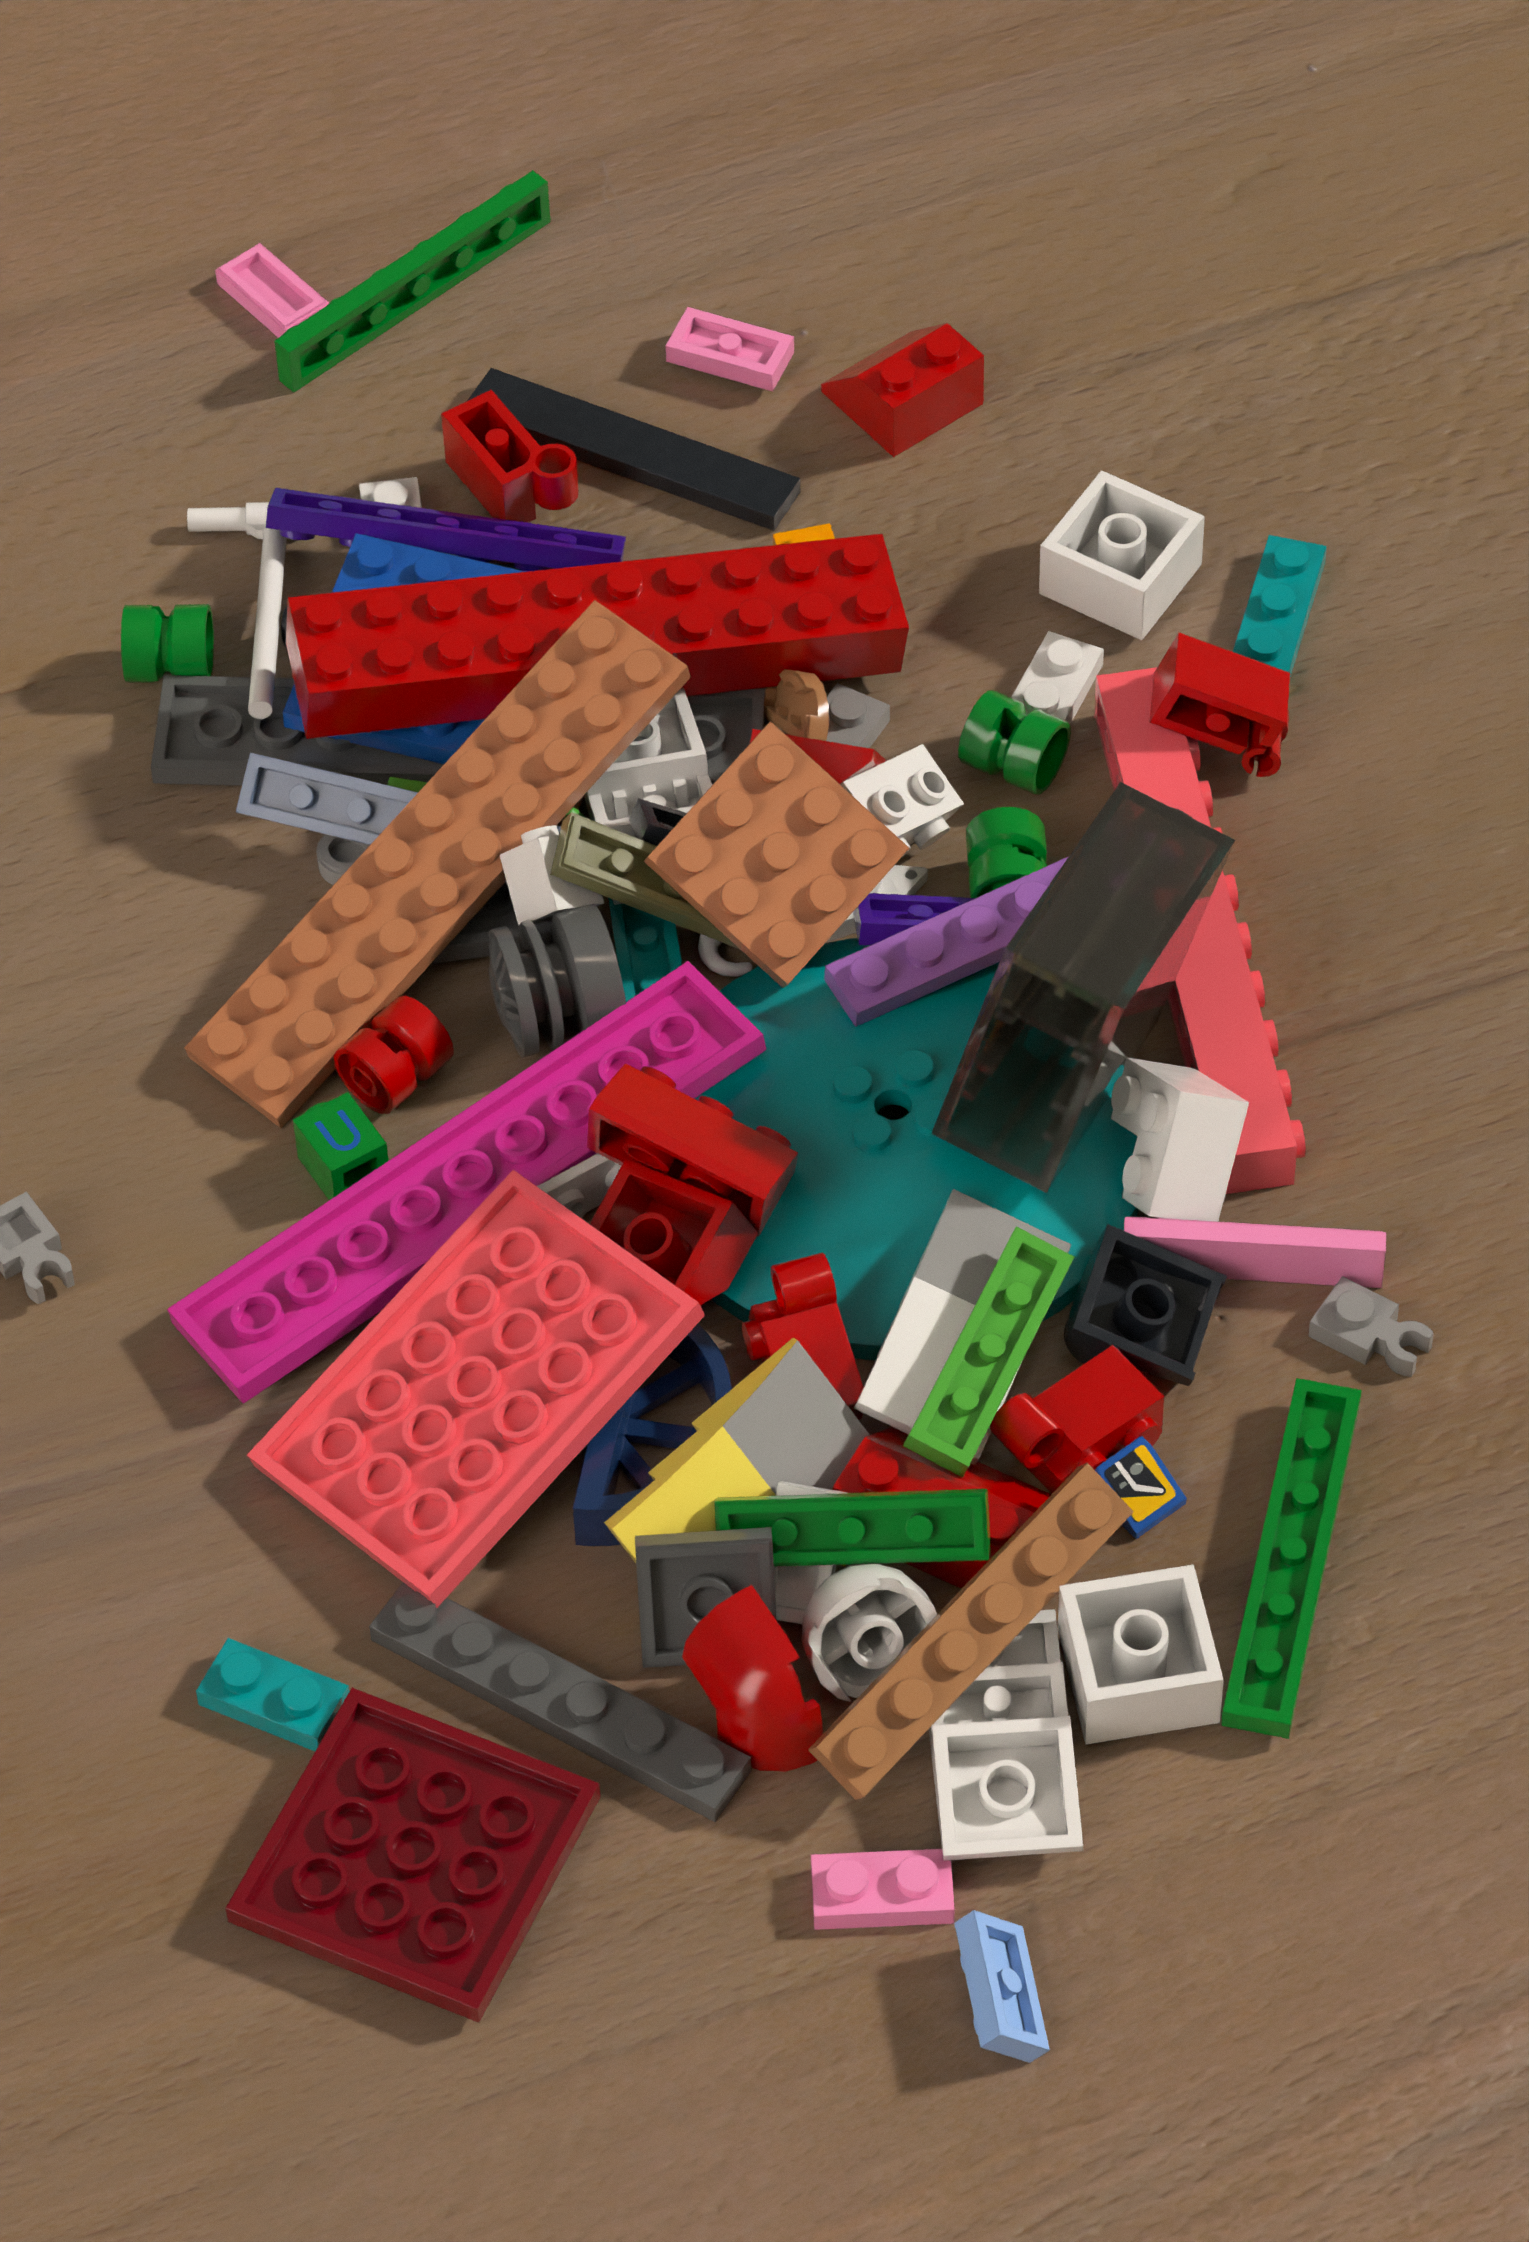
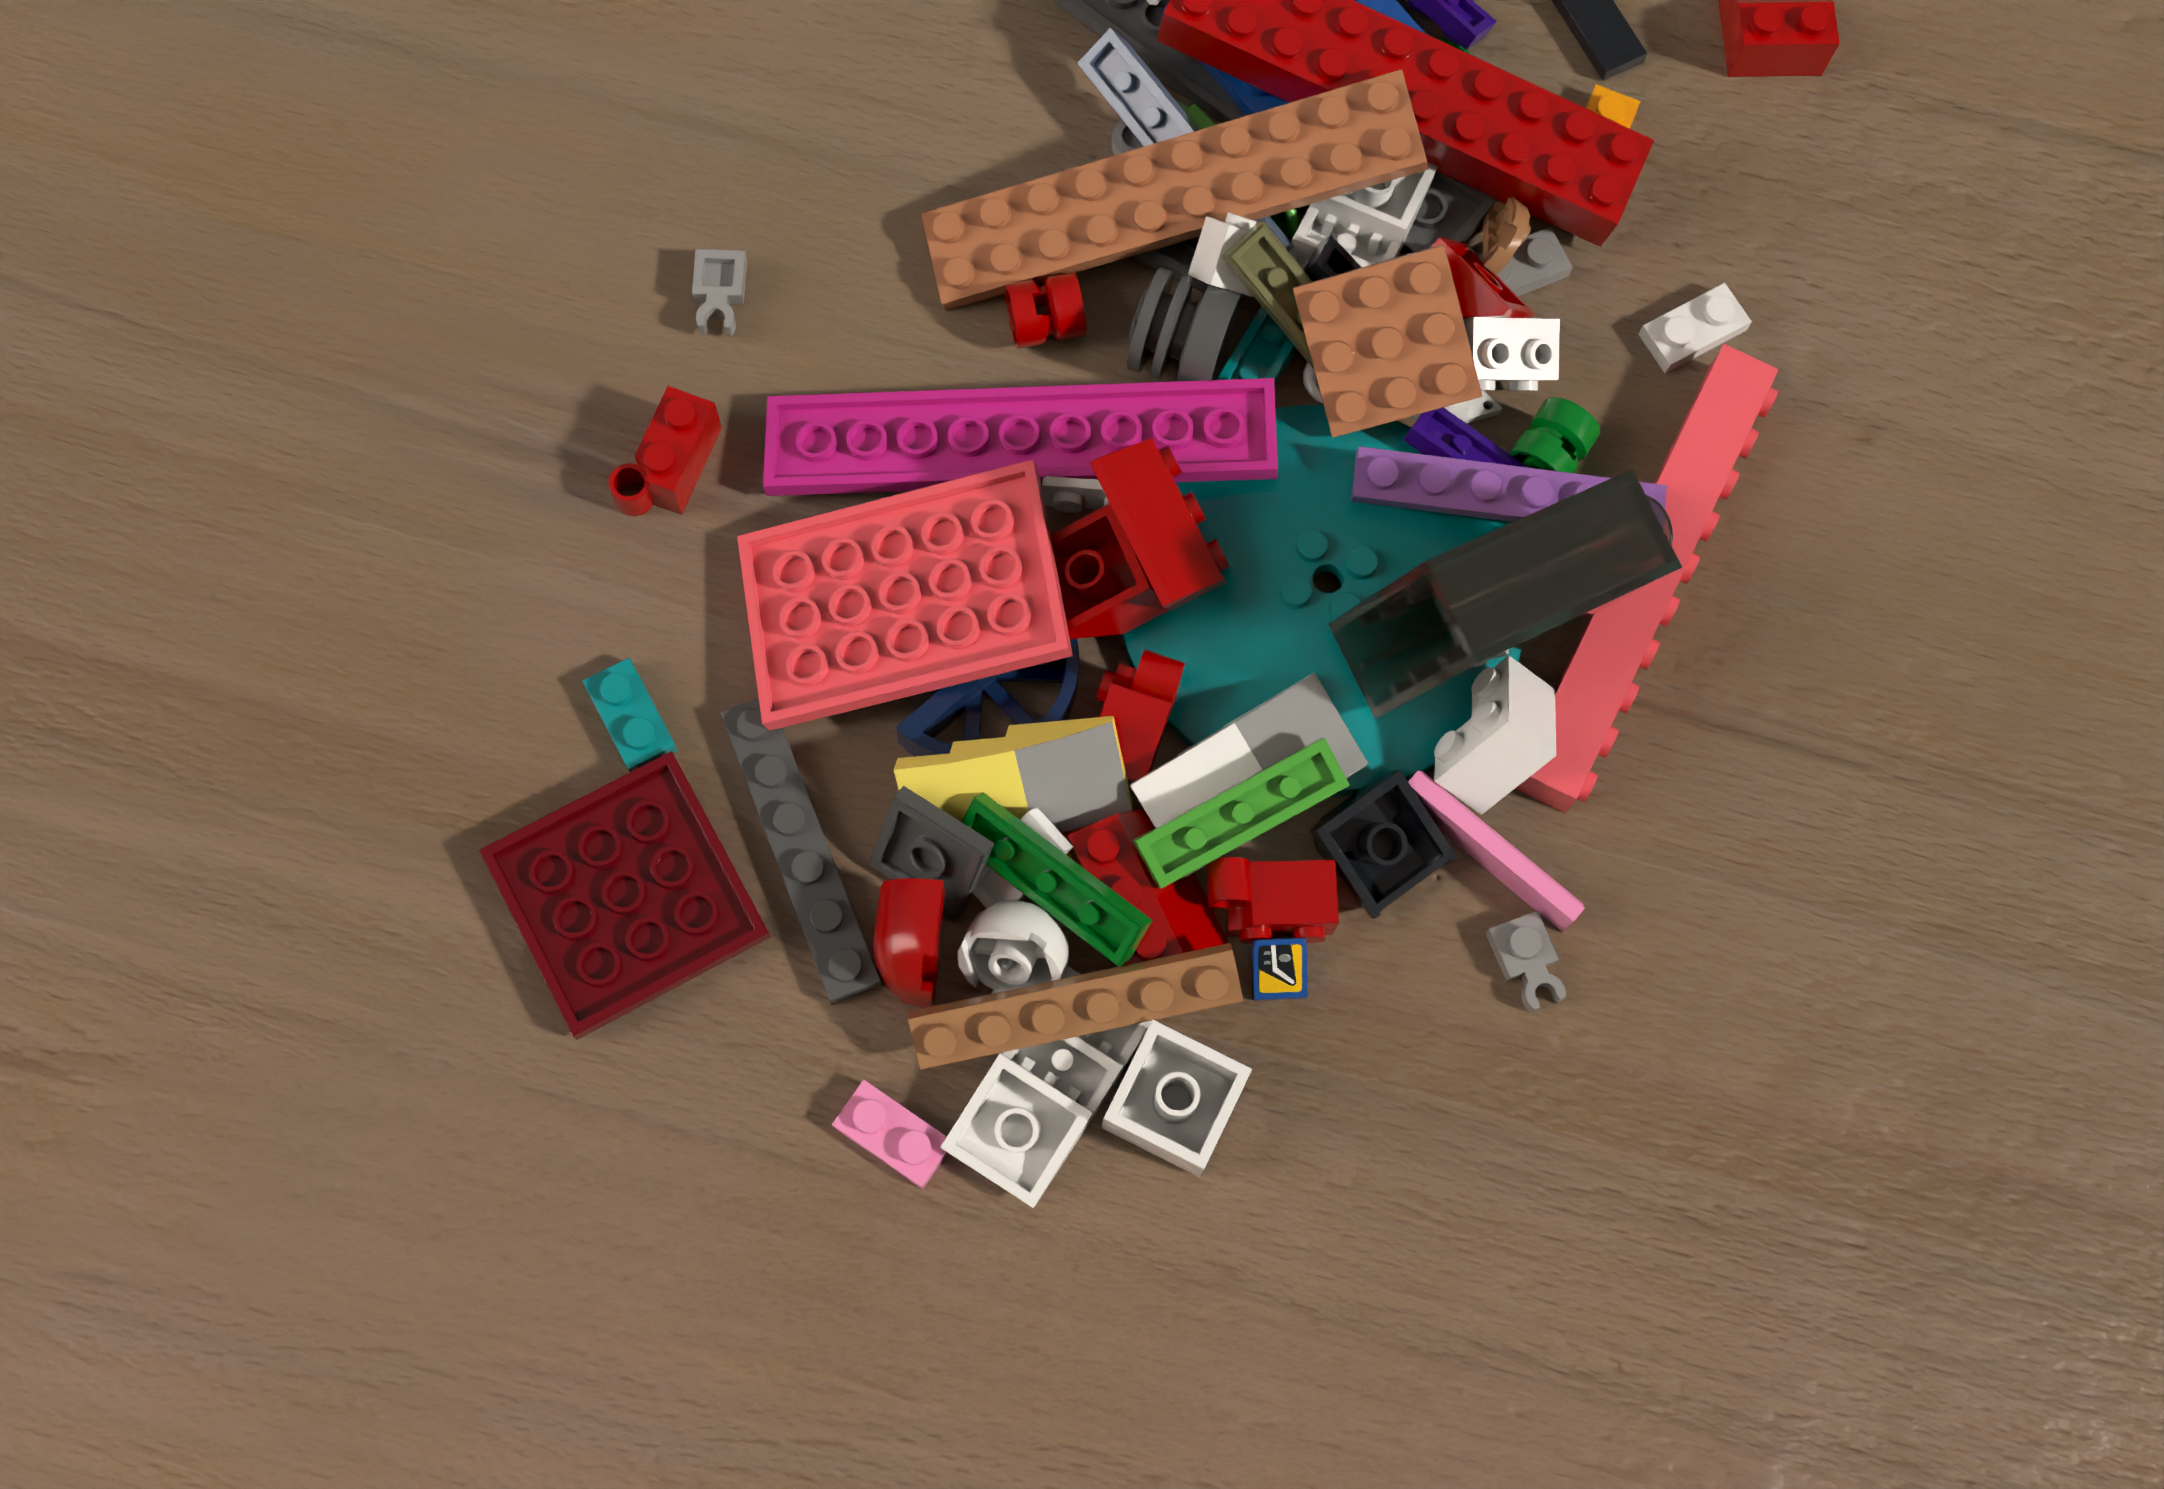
camera: 30 degrees right, 20 degrees up
(112, 1427) = (669, 455): none -> red hinge
(338, 1144) = (962, 352): green brick -> none
(1001, 1986) = (906, 1266): light blue plate -> none
(1007, 739) = (1629, 350): green wheel -> none
(1121, 555) = (1817, 259): white brick -> none
(1223, 701) = (1793, 423): red hinge -> none
(1281, 602) = (1896, 372): teal plate -> none
(1291, 1559) = (1338, 1095): green plate -> none

